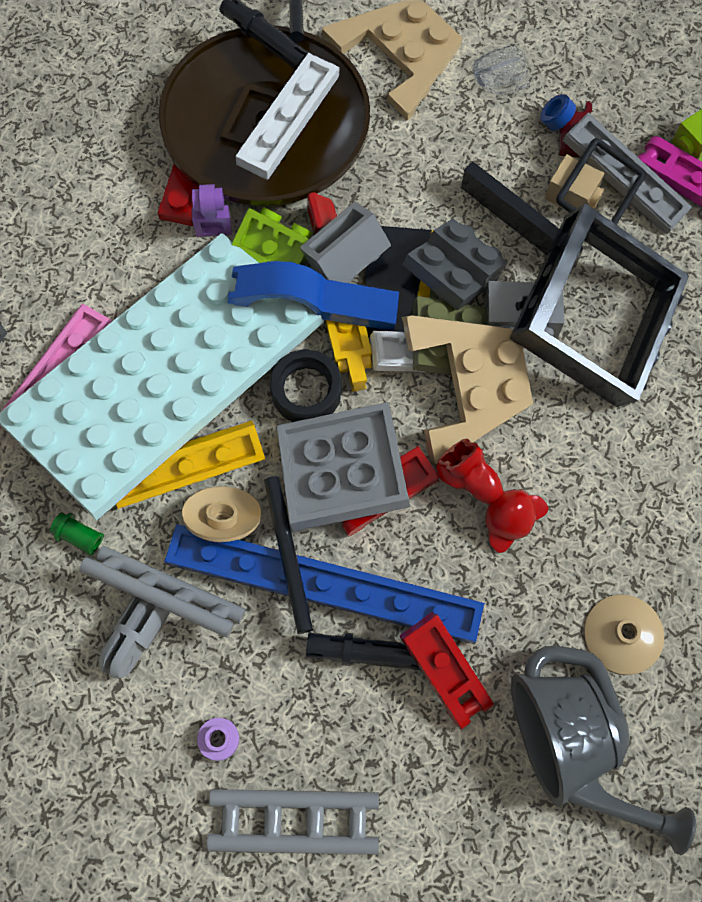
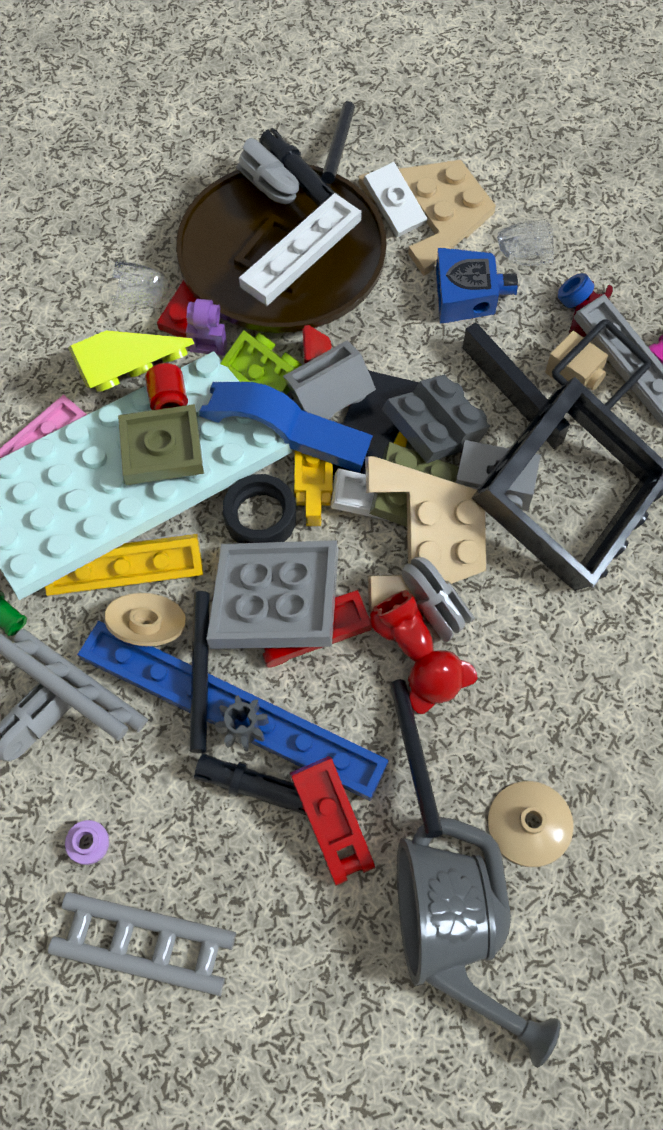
camera: 15 degrees right, 5 degrees down
(123, 258) = (116, 353): none -> neon yellow slope
(132, 181) = (140, 288): none -> clear brick
(190, 284) = (165, 386): none -> red brick
(199, 339) = (160, 444): none -> olive plate
(236, 41) = (267, 172): none -> light grey arm
(336, 587) = (240, 711): none -> dark grey gear
(363, 47) = (395, 199): none -> white plate
(455, 123) = (469, 284): none -> blue torso
(496, 440) = (436, 598): none -> light grey arm
(510, 597) = (416, 759): none -> black bar

